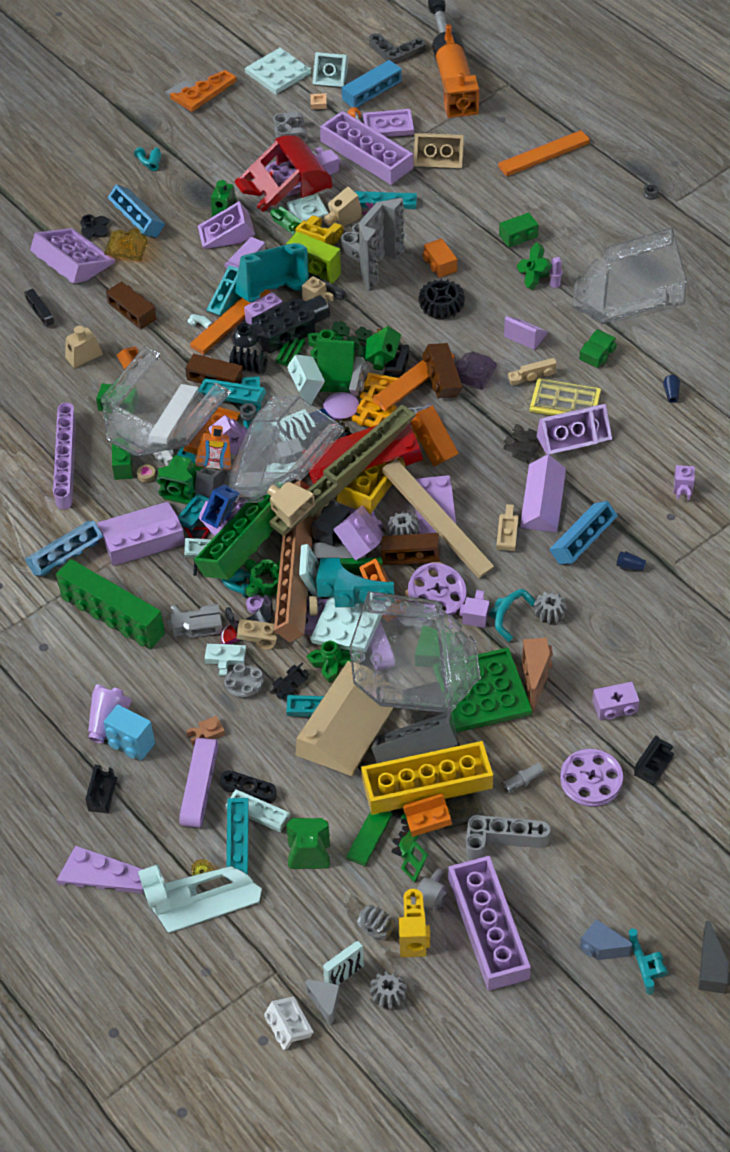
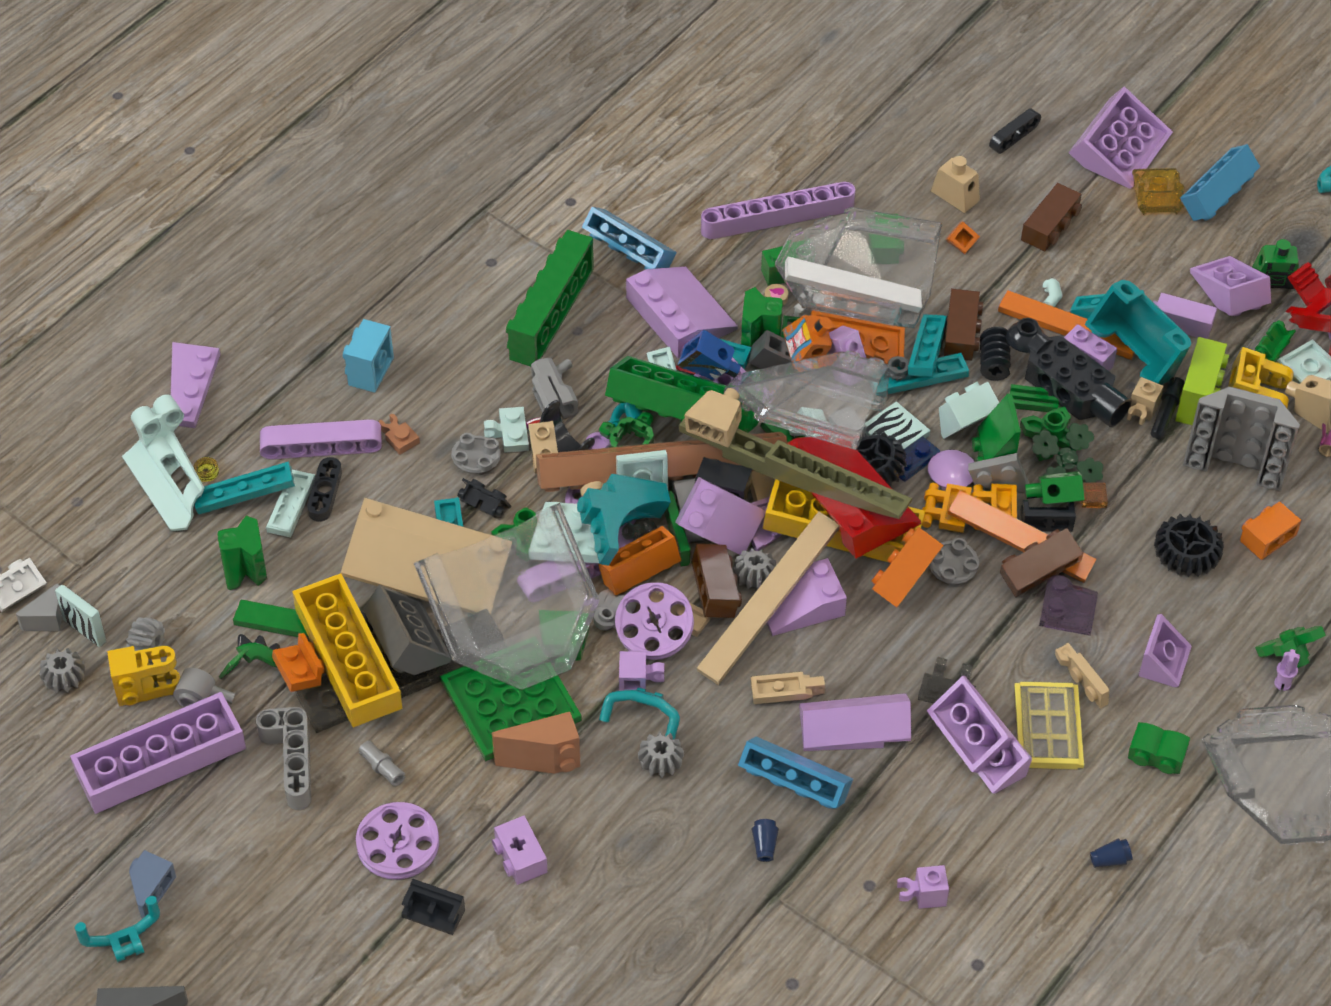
camera: 75 degrees right, 0 degrees up
(94, 226) = (1183, 151): black plate -> none
(101, 790) = (295, 352): black hinge -> none
(102, 704) = (407, 329): lavender cone -> none

